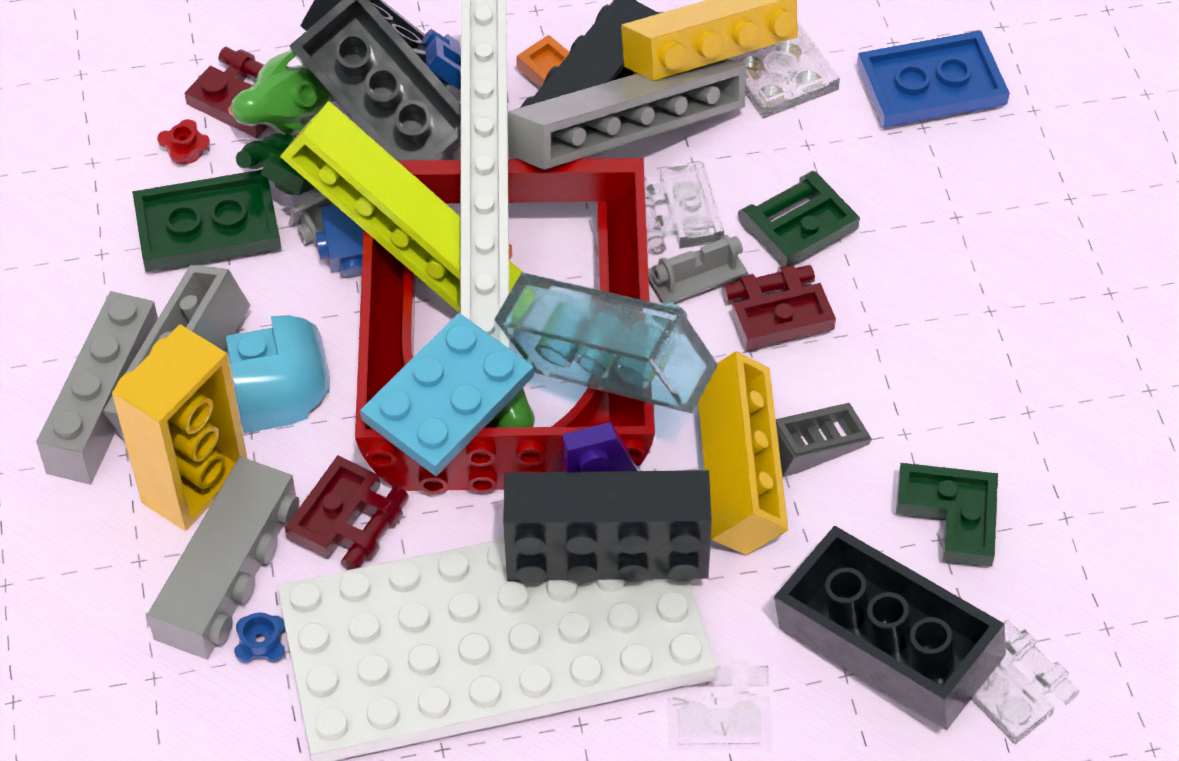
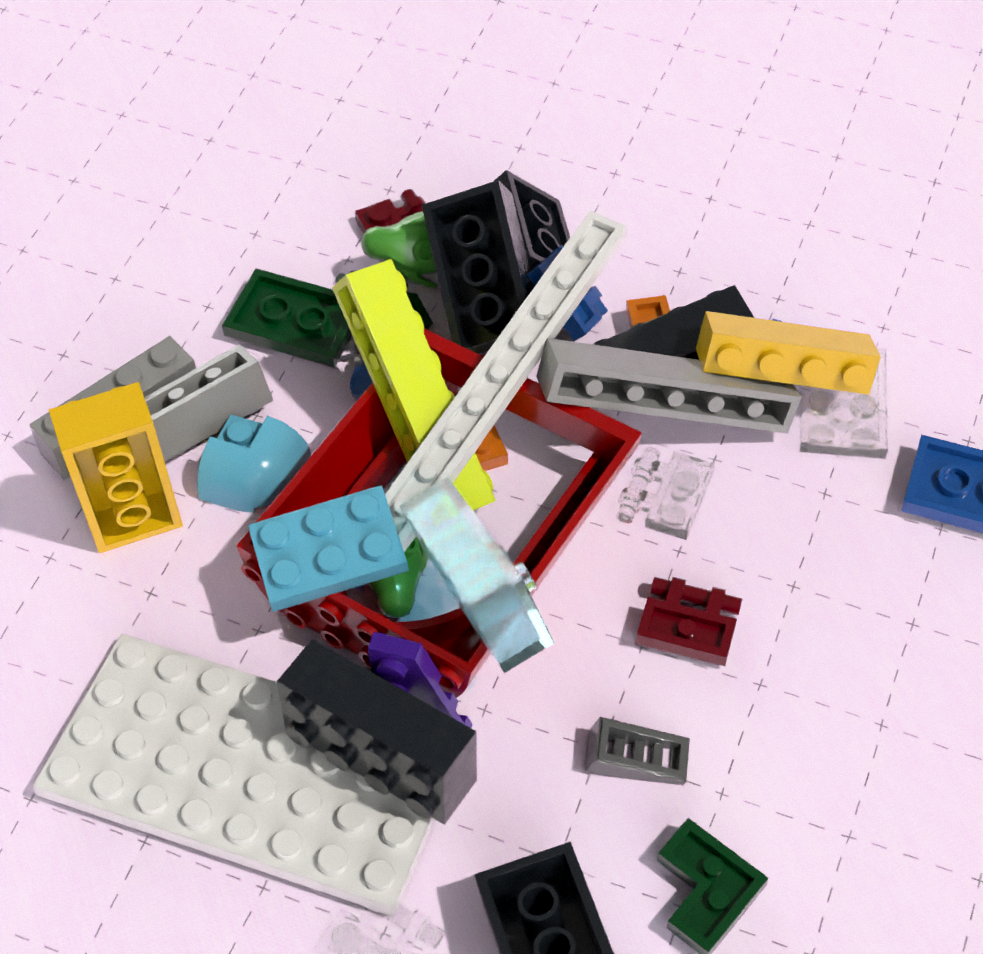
camera: 35 degrees right, 0 degrees up
(184, 142) = (326, 249): red plate -> none
(223, 558) = (99, 589): light grey brick -> none
(255, 626) = (70, 661): blue plate -> none
(334, 506) = (208, 595): dark red plate -> none
(698, 270) = (643, 554): light grey hinge -> none
(742, 455) = (552, 732): yellow brick -> none
(804, 228) = (765, 564): dark green plate -> none

